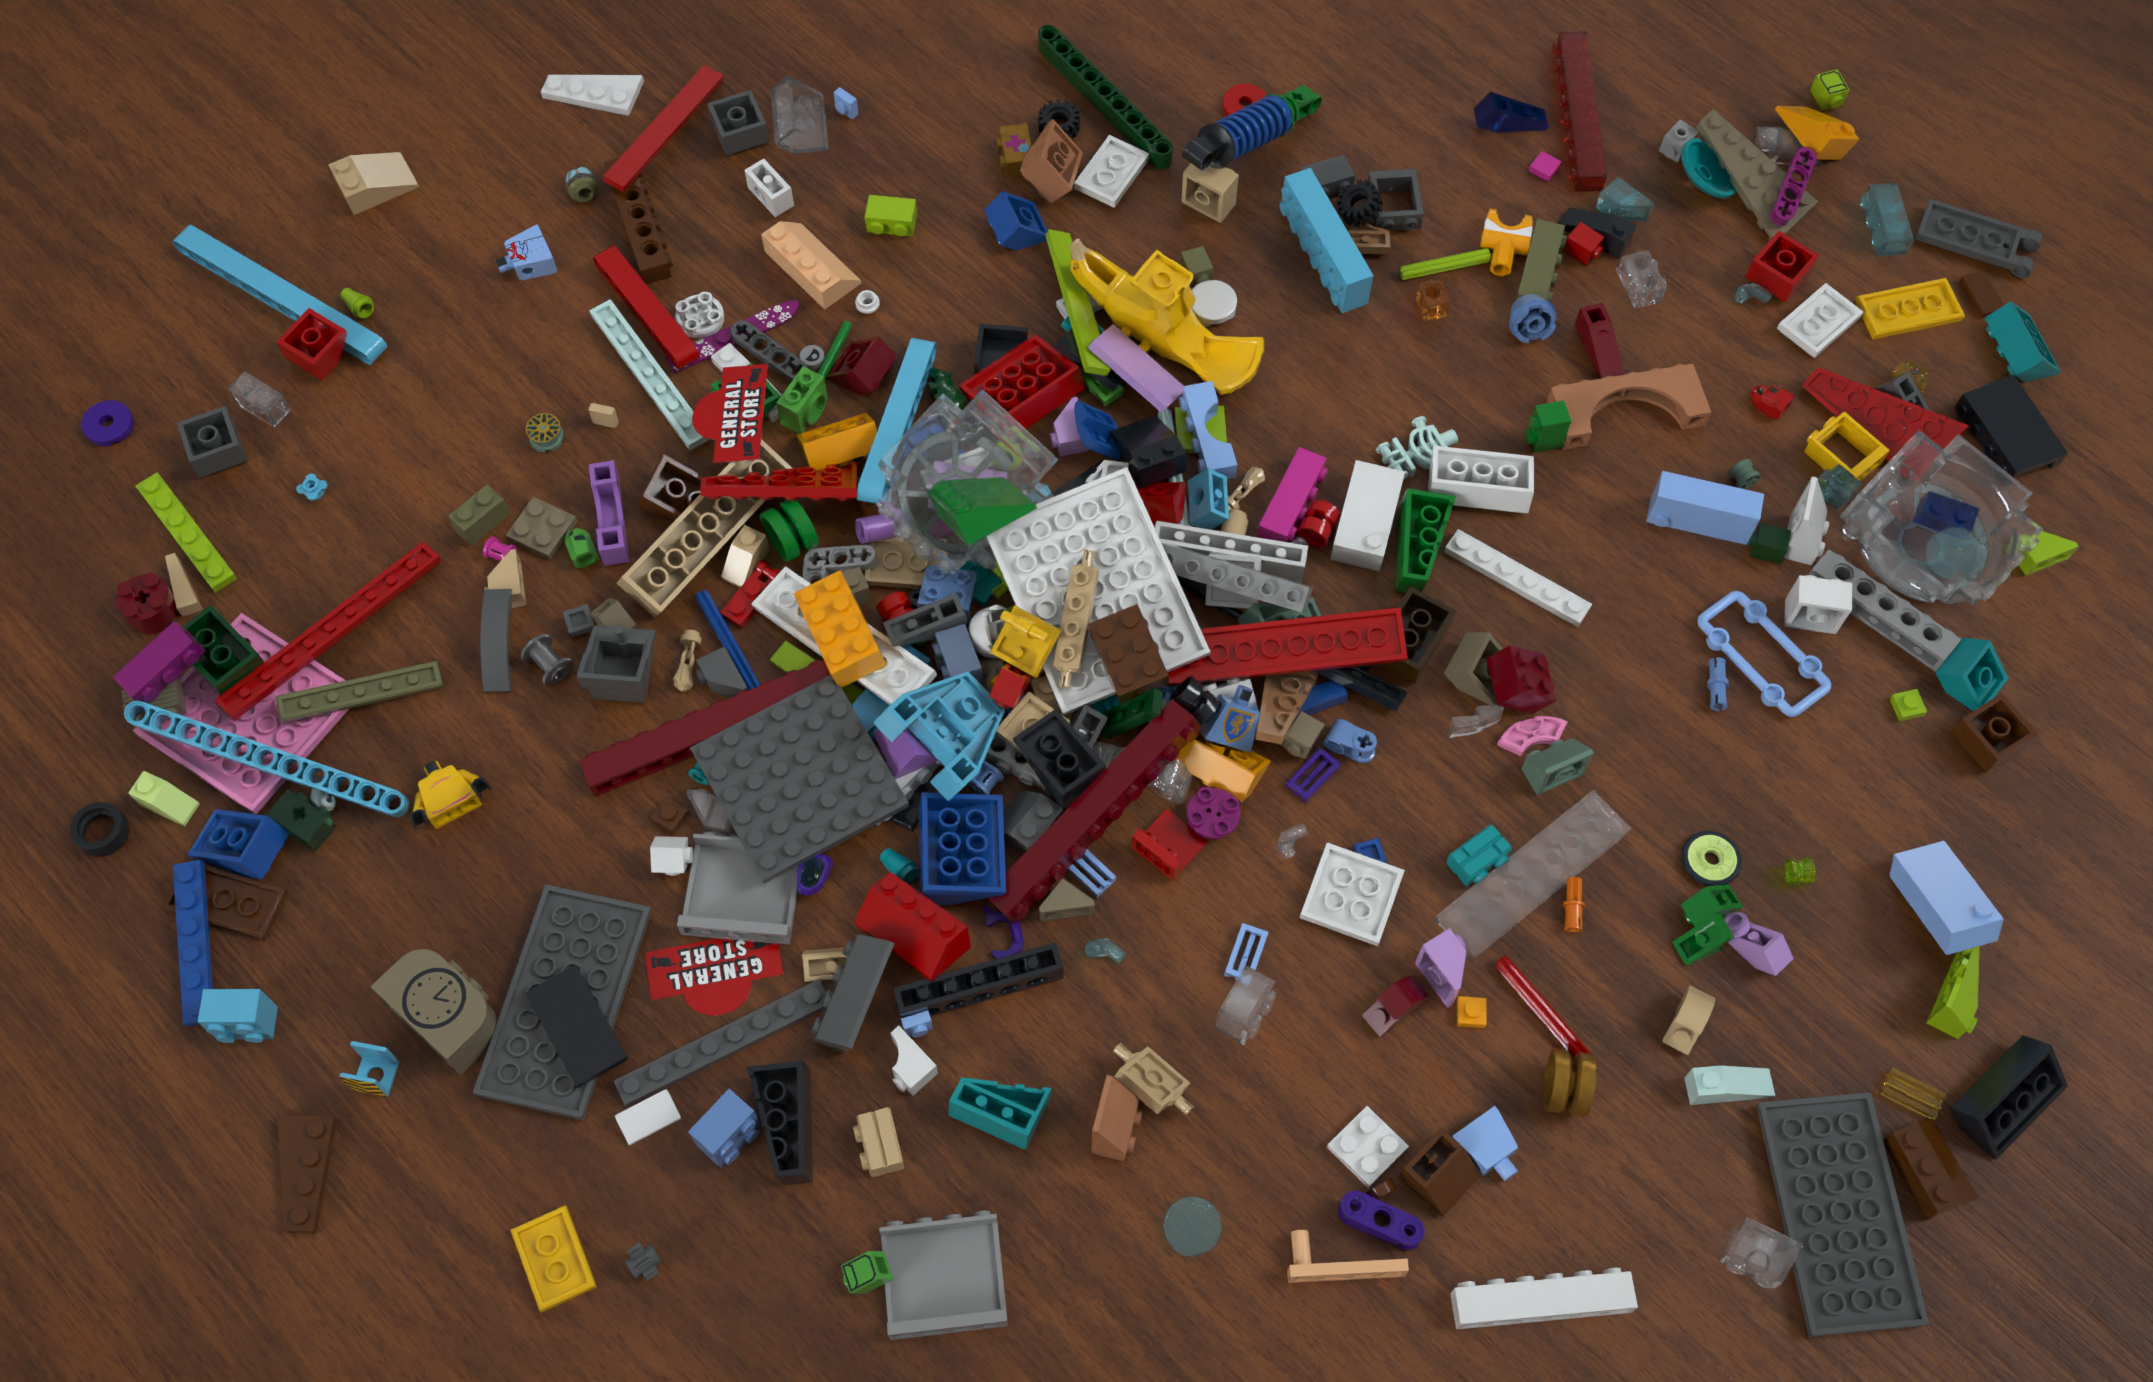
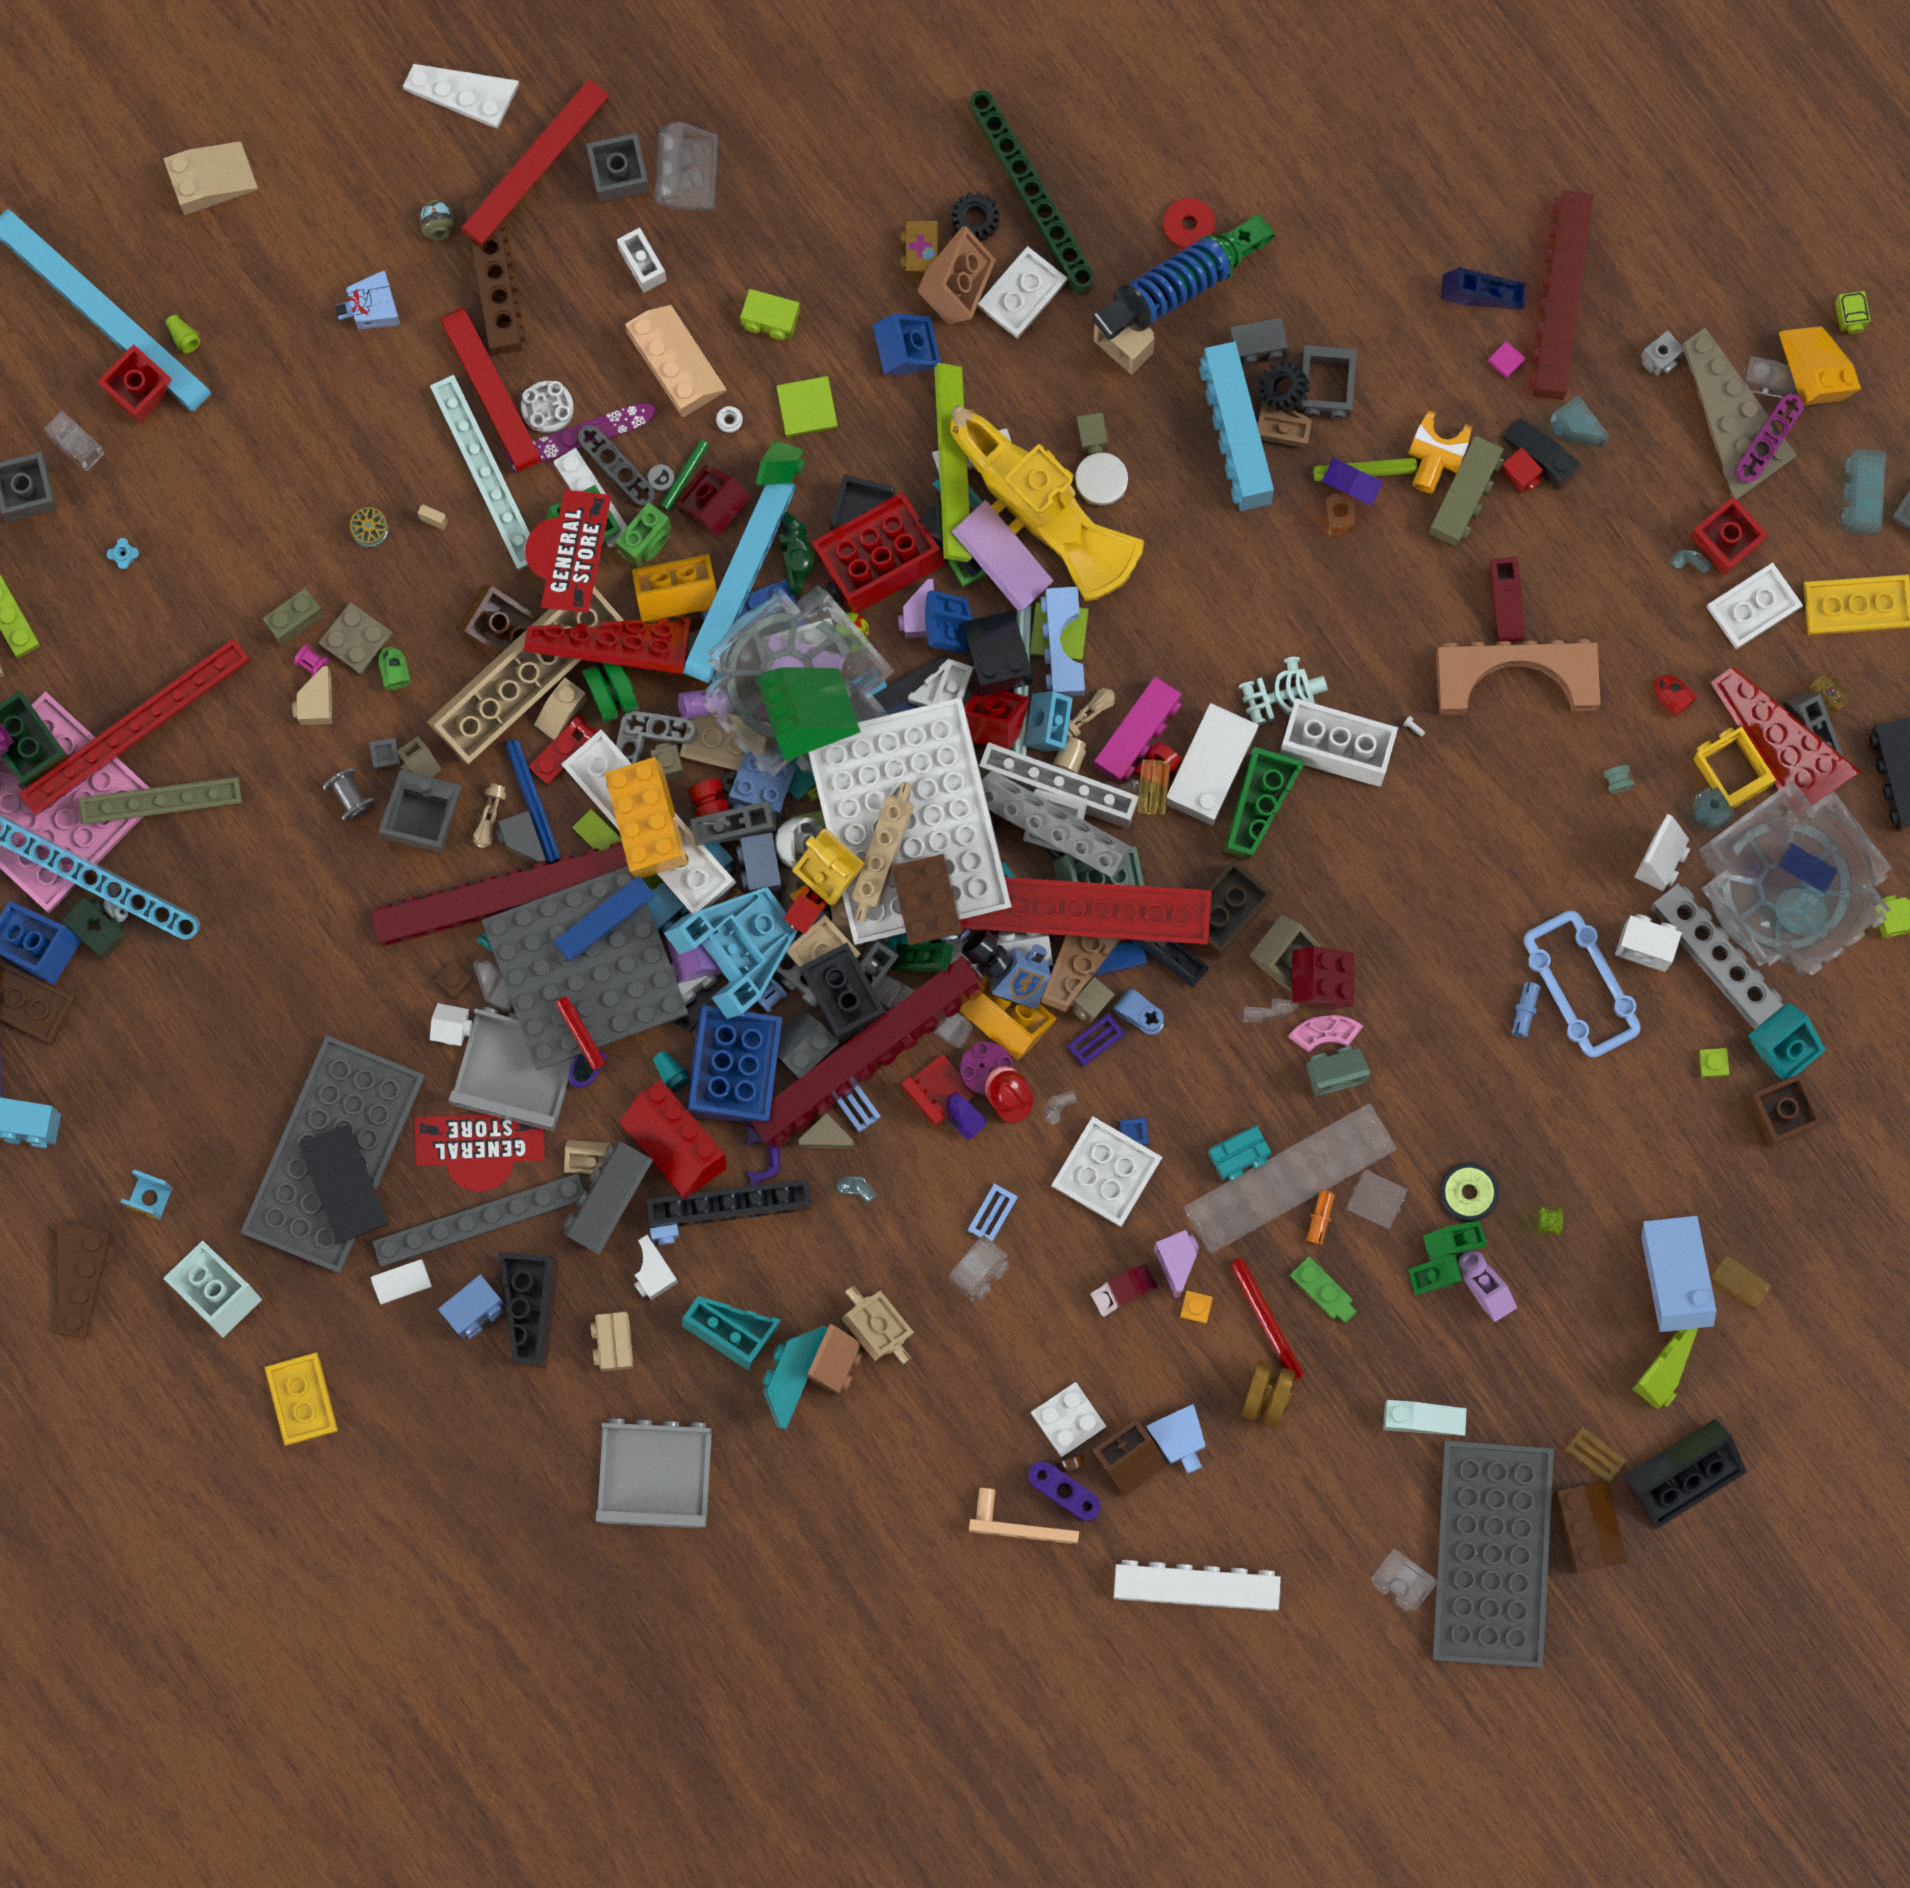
camera: 10 degrees right, 15 degrees up
(440, 1006) = (217, 1145): dark tan brick -> none
(446, 795) = (237, 925): yellow torso -> none
(448, 1156) = (212, 1289): none -> light aqua slope
(495, 640) = (299, 764): dark grey slope -> none
(610, 513) = (428, 637): medium lavender arch -> none
(643, 1261) = (383, 1416): dark grey gear -> none
(802, 835) = (580, 1032): none -> red axle
(812, 725) = (604, 919): none -> blue slope
(845, 103) = (740, 157): light blue plate -> none
(866, 1272) = (584, 1461): bright green brick -> none
(920, 325) = (780, 464): none -> green slope
(936, 284) = (807, 406): none -> lime tile
(1071, 1141) = (790, 1374): none -> teal wedge
(1192, 1226) = (890, 1467): clear light blue tile -> none
(1200, 861) = (964, 1116): none -> dark purple rock
(1241, 833) = (1009, 1094): none -> red piece
(1324, 535) = (1158, 786): none -> clear yellow tile
(1438, 265) = (1352, 481): none -> dark purple slope
(1518, 578) = (1352, 857): white plate -> none
(1532, 318) = (1439, 558): medium blue cone -> none
(1538, 458) = (1408, 722): none -> white piece
(1548, 426) = (1422, 694): green brick -> none
(1594, 975) = (1324, 1290): none -> bright green hinge
(1623, 880) = (1377, 1199): none -> clear piece
(1641, 278) = (1569, 524): clear brick -> none
(1689, 1020) = (1401, 1350): tan brick -> none
(1704, 170) = (1677, 400): teal dish -> none
(1705, 507) = (1561, 815): light blue brick -> none
(1769, 543) = (1621, 862): dark green brick -> none
(2007, 902) = (1741, 1282): none -> clear yellow tile

